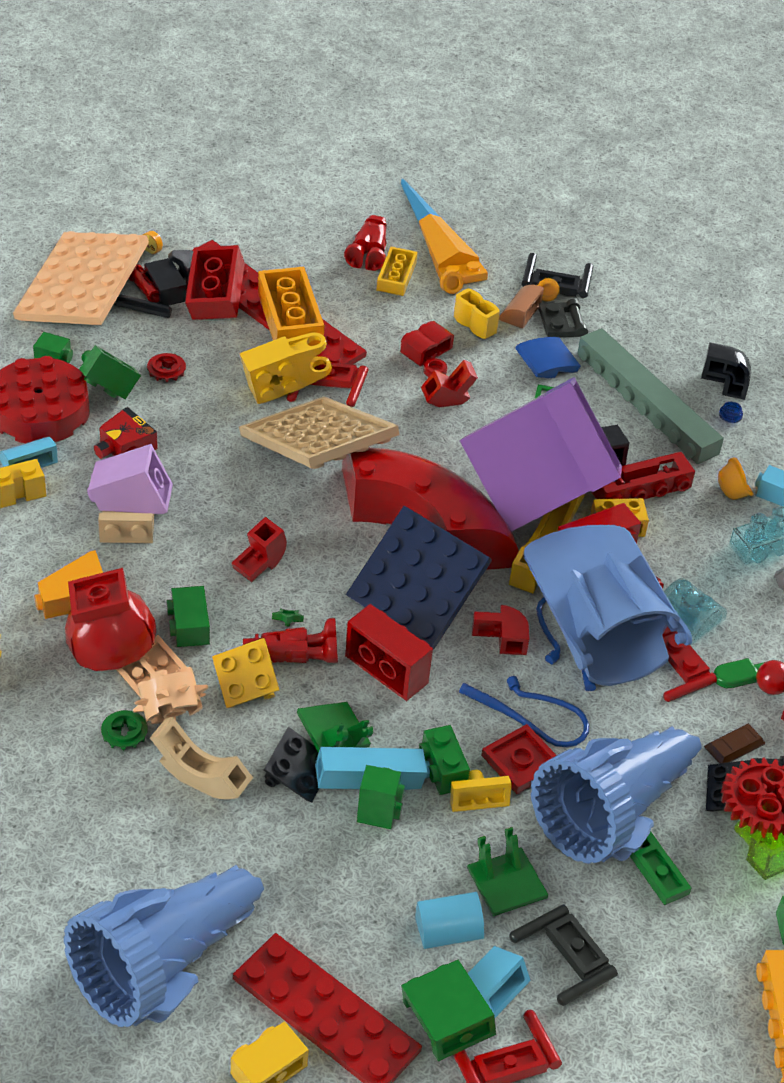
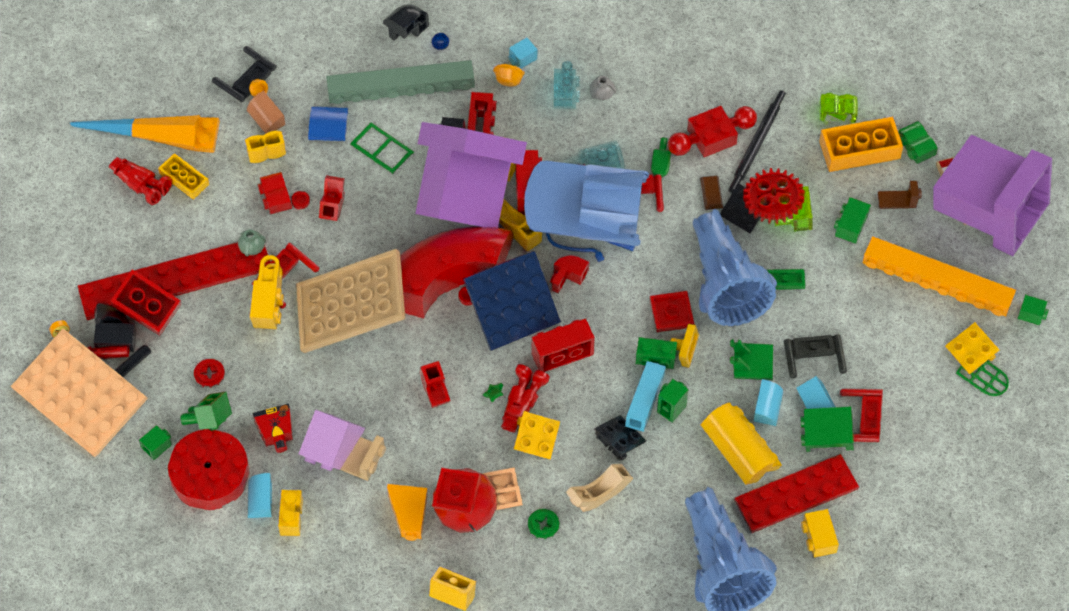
camera: 60 degrees left, 15 degrees up
(169, 695) = (541, 484): light nougat brick -> none
(190, 616) = (471, 449): green brick -> none
(289, 303) = (207, 264): light orange brick -> none
(335, 726) = (603, 402): green plate -> none
(348, 339) = (251, 245): none -> sand green piece
(364, 908) = (740, 443): none -> yellow brick
(451, 282) = (217, 146): light orange tile -> none
(514, 685) = (610, 288): blue piece -> none
(555, 320) = (289, 99): pearl dark grey plate -> none

